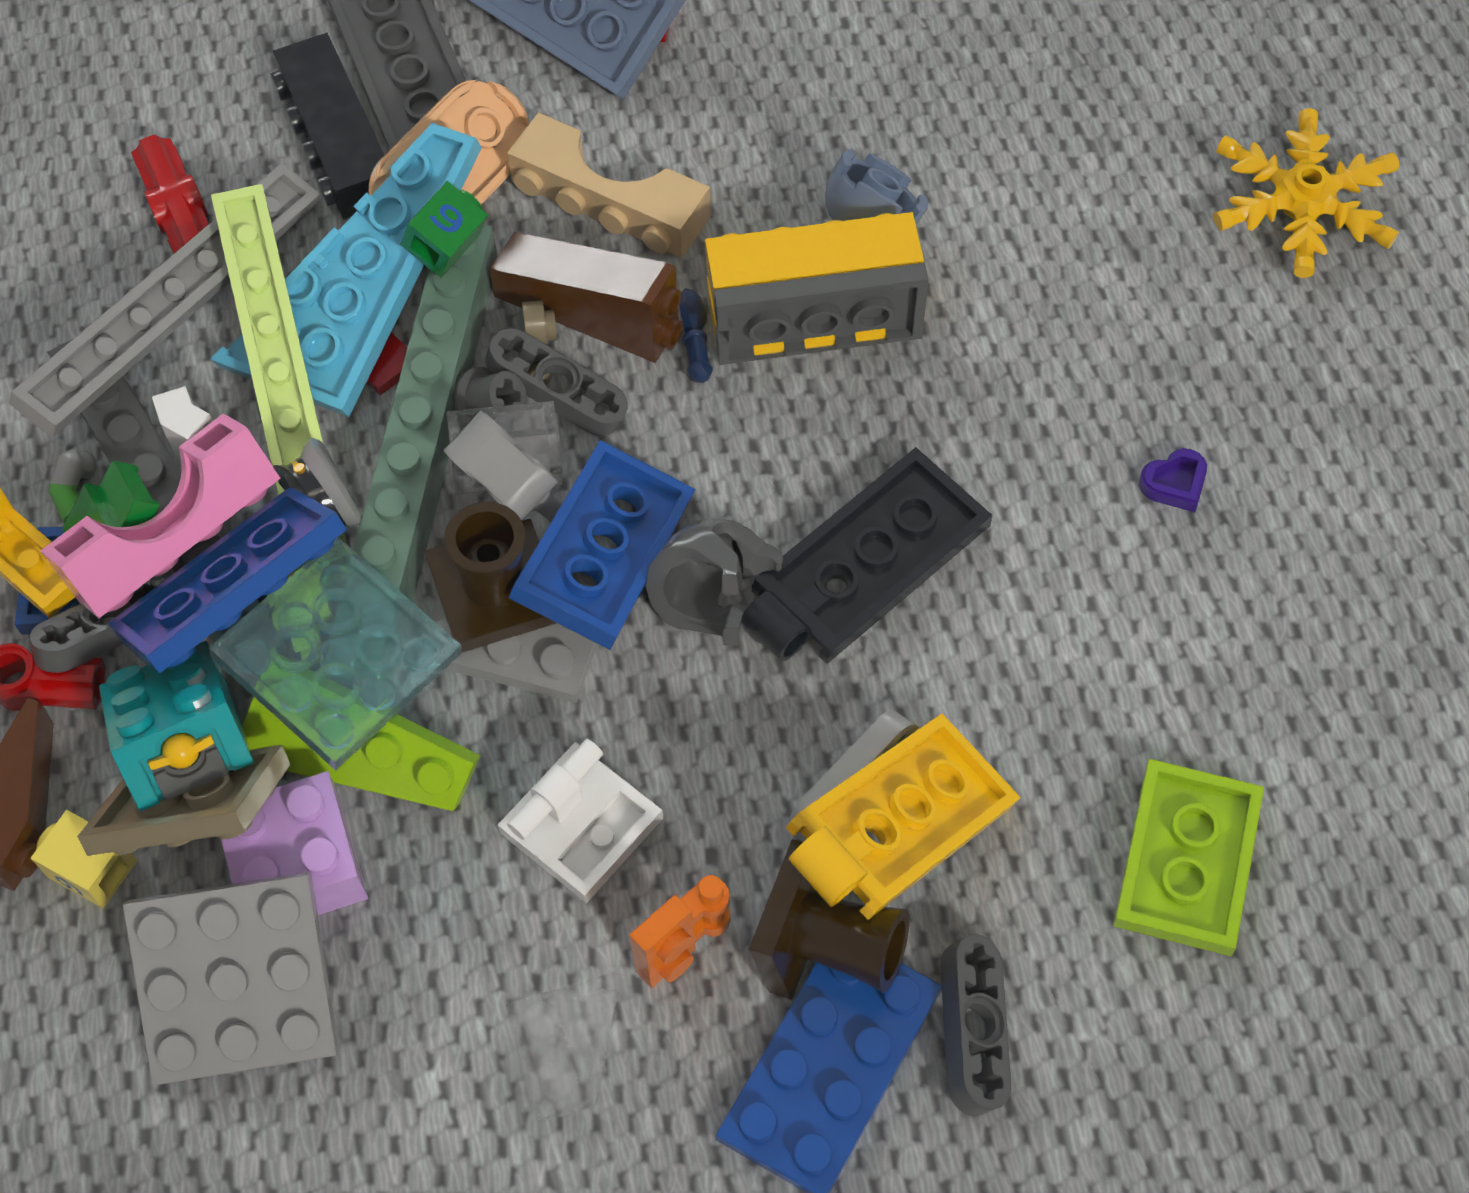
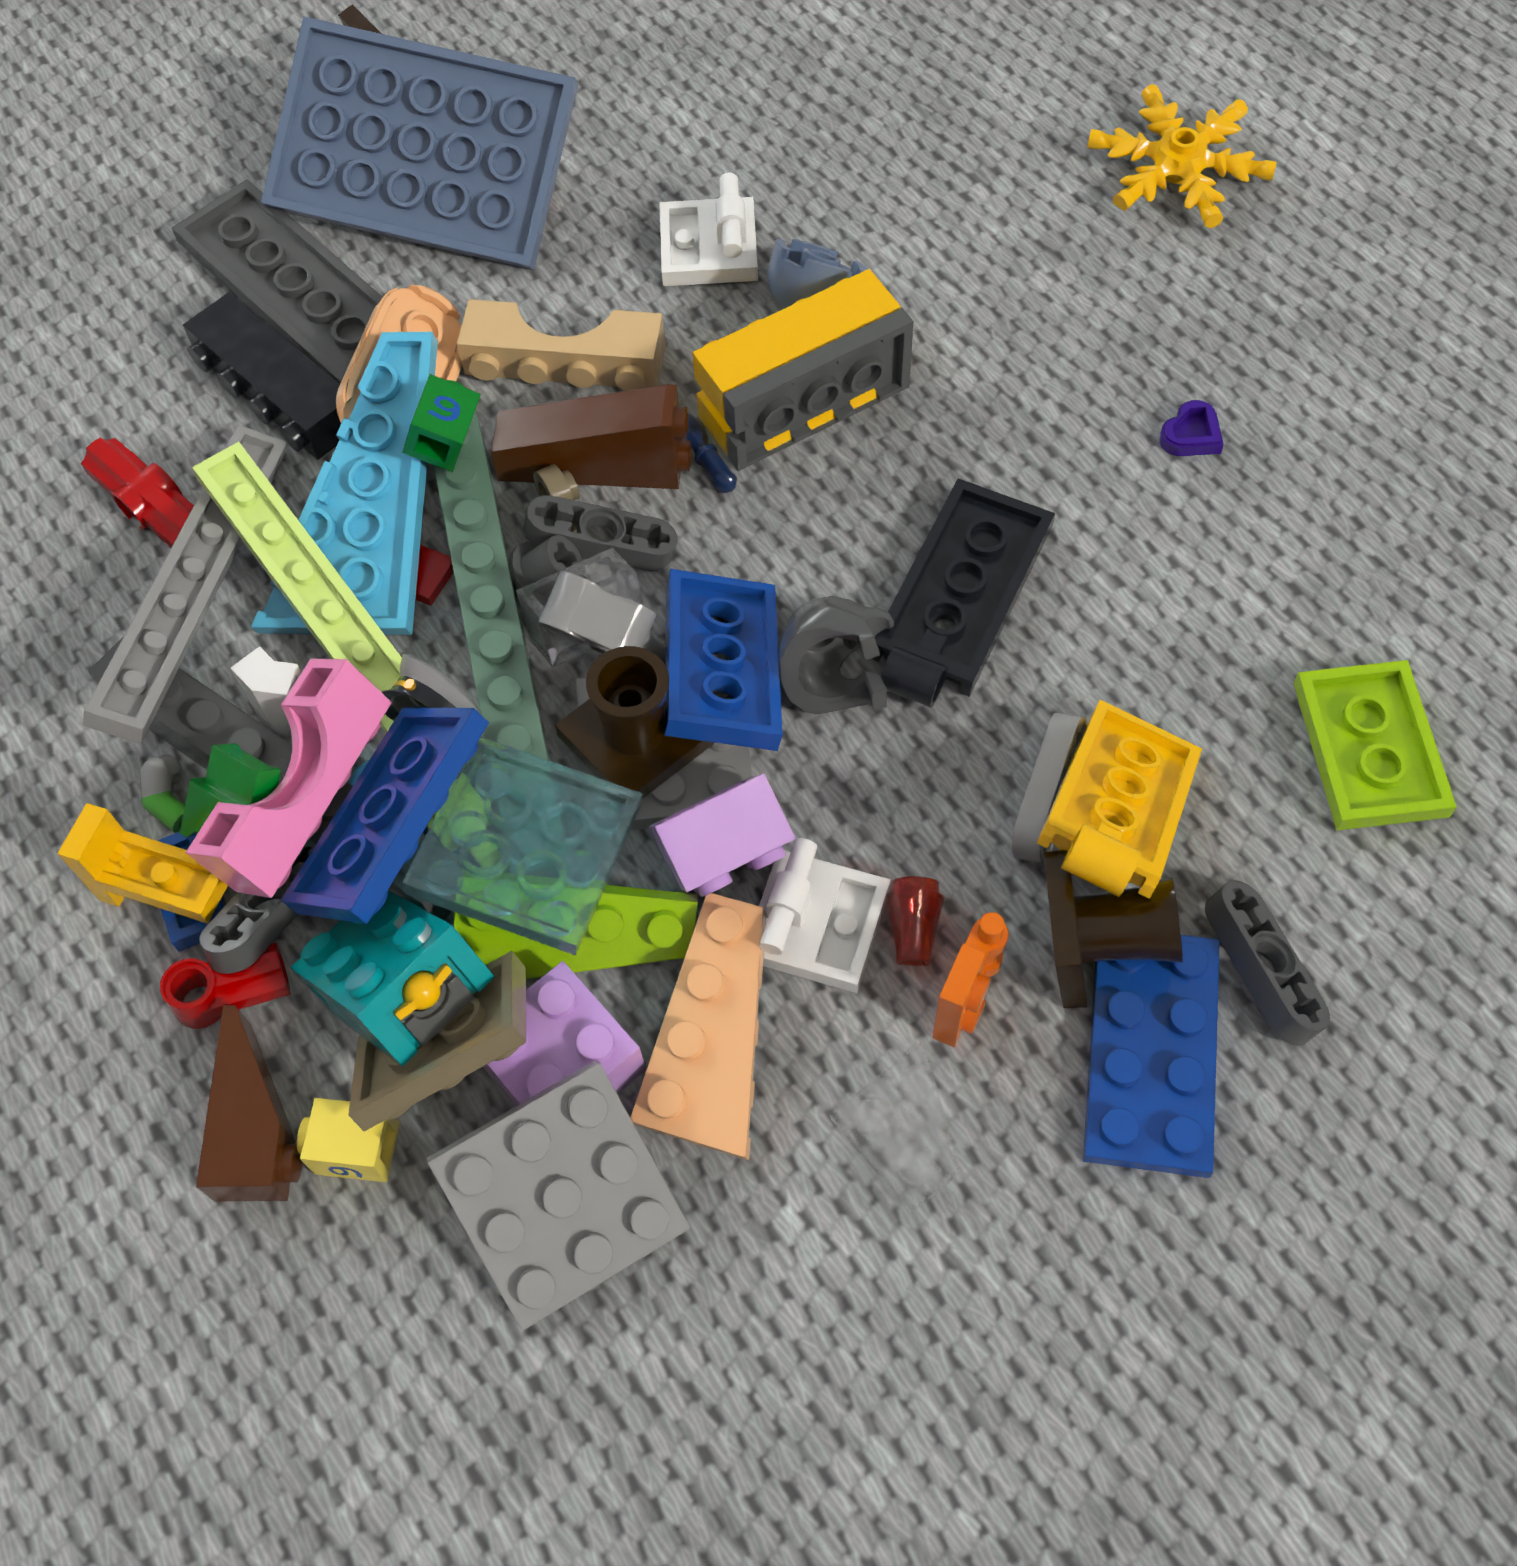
camera: 20 degrees left, 0 degrees up
(419, 904) = (705, 1051): none -> light nougat wing
(518, 709) = (723, 834): none -> lavender brick
(669, 853) = (914, 918): none -> clear red cone
(798, 124) = (709, 238): none -> white plate

